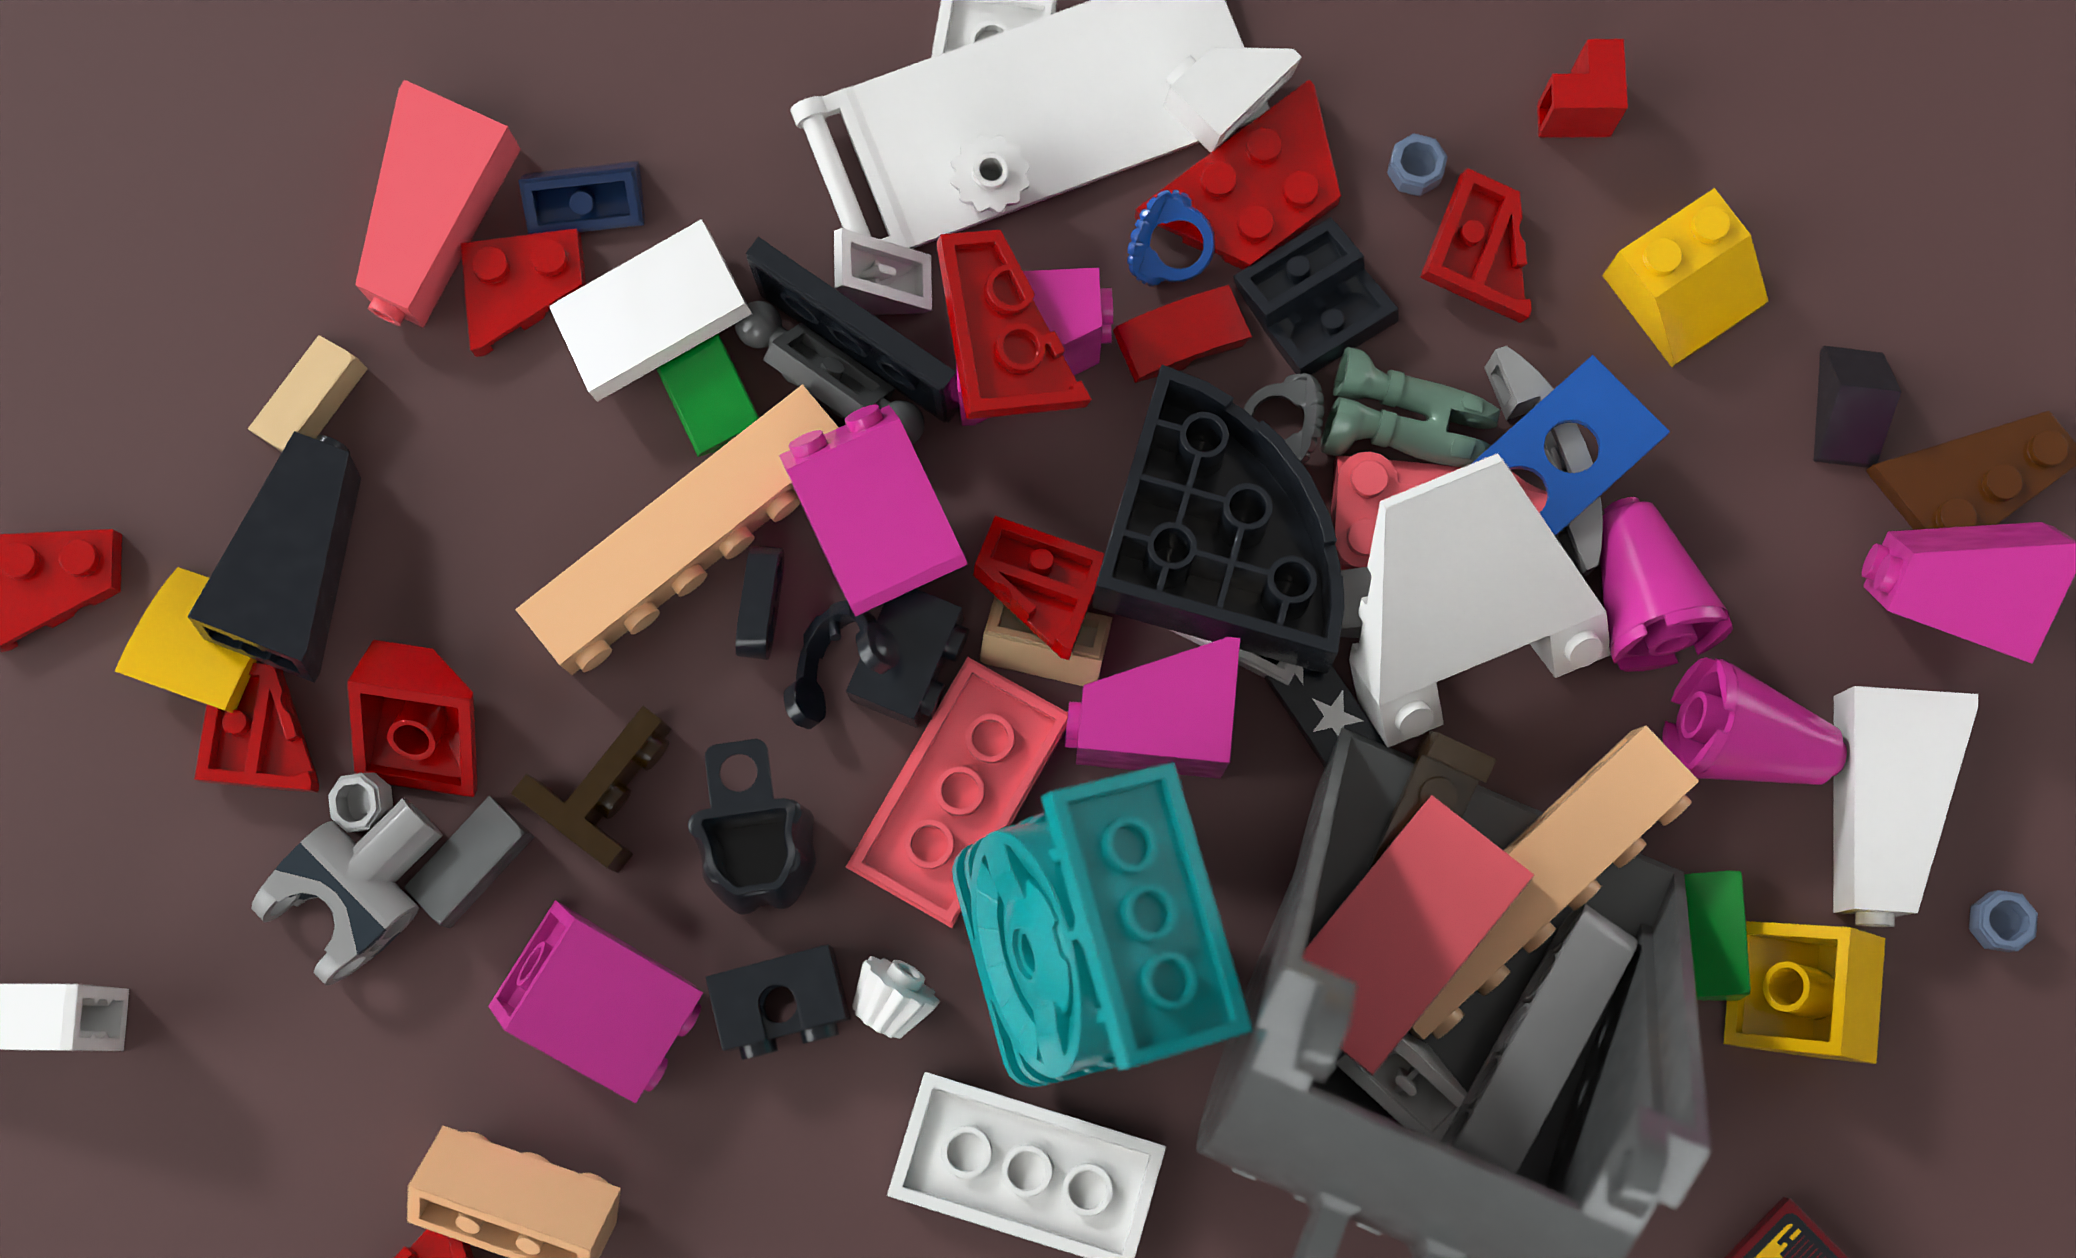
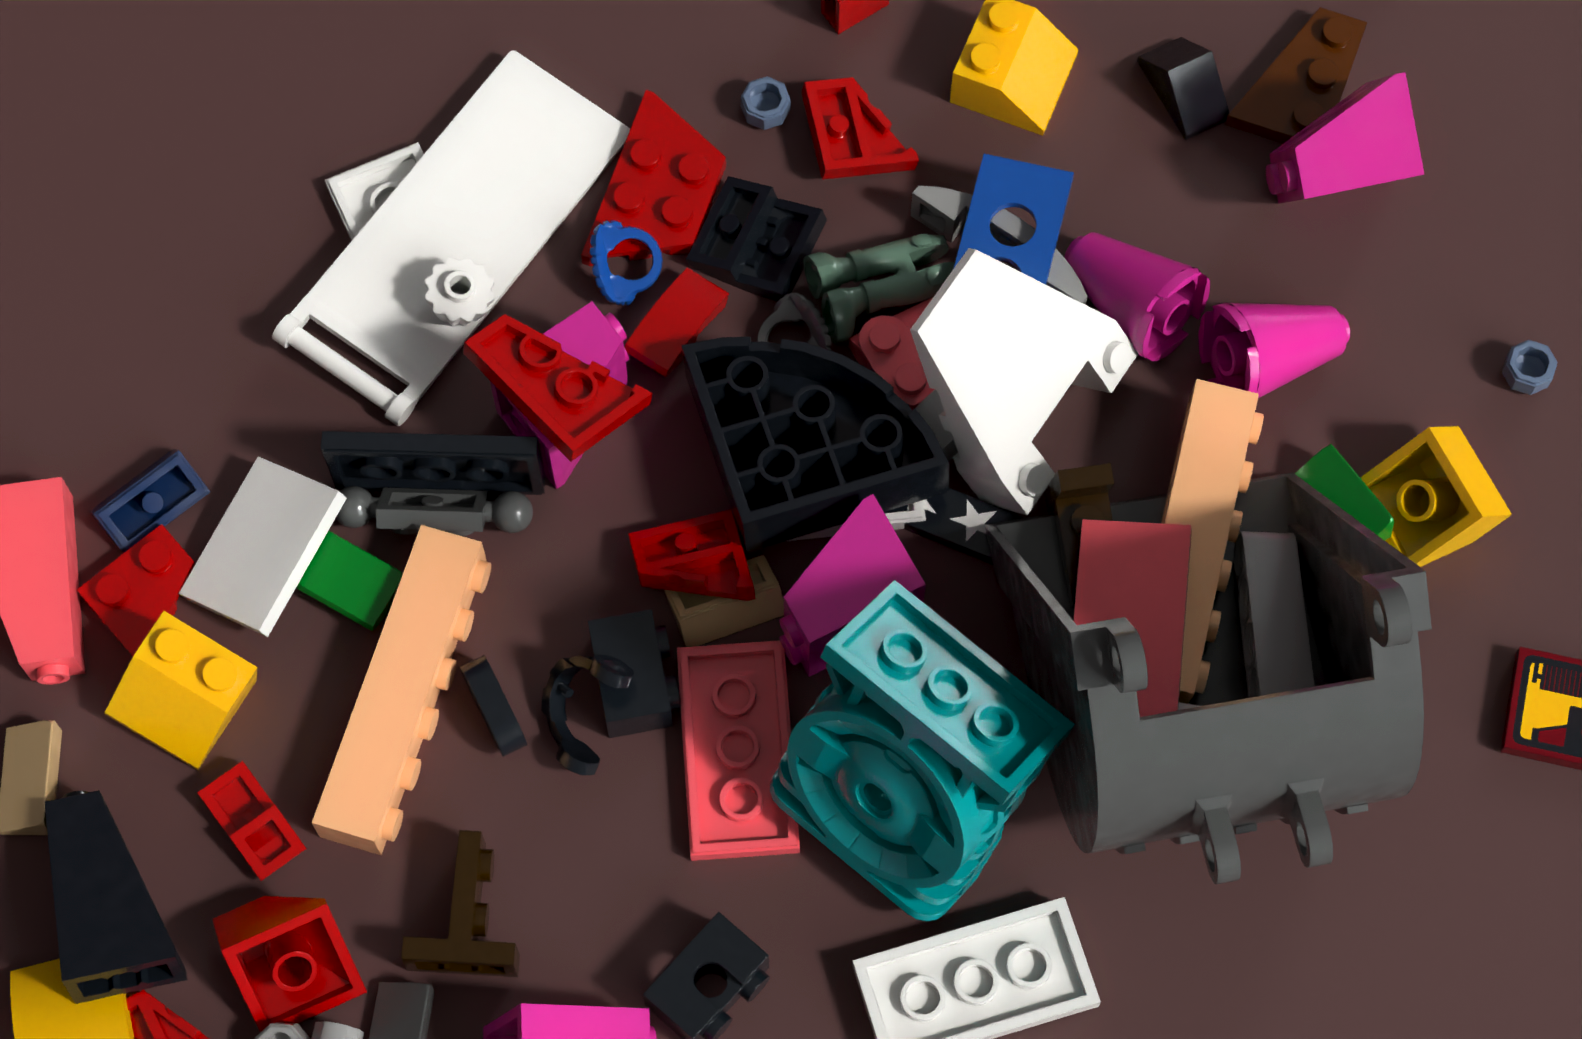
camera: 35 degrees left, 10 degrees down
(476, 567) = (251, 820): none -> red slope
(487, 402) = (181, 690): none -> yellow slope
(748, 842) = (608, 874): black piece -> none
(872, 508) = (537, 577): dark pink slope -> none
(881, 274) = (424, 409): white slope -> none
(892, 997) = (791, 923): white piece -> none
(1226, 89) = (590, 131): white slope -> none
(1893, 795) = (1396, 327): white slope -> none

